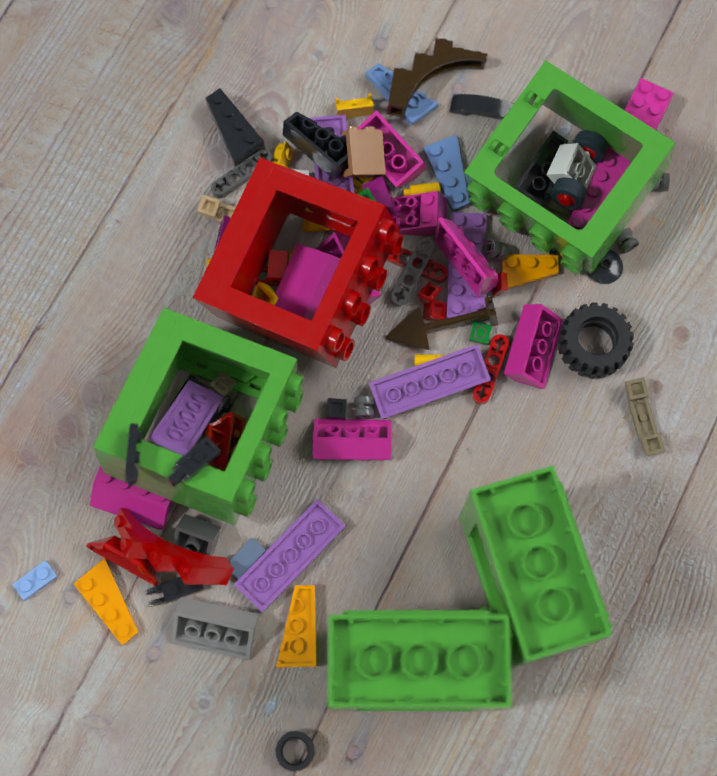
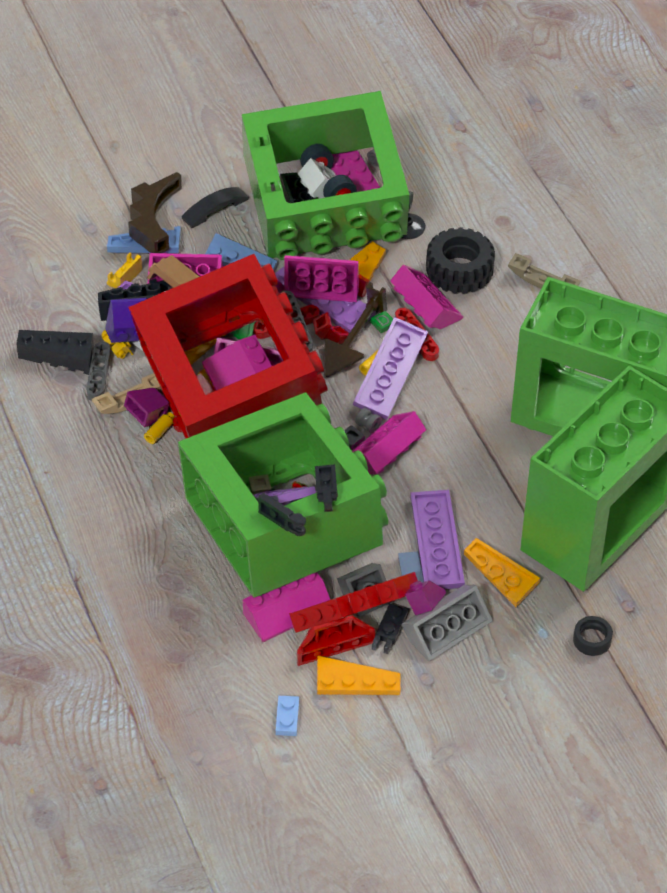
camera: 50 degrees left, 25 degrees down
(216, 596) = (424, 596): none -> magenta slope
(291, 153) = (119, 321): none -> dark purple slope

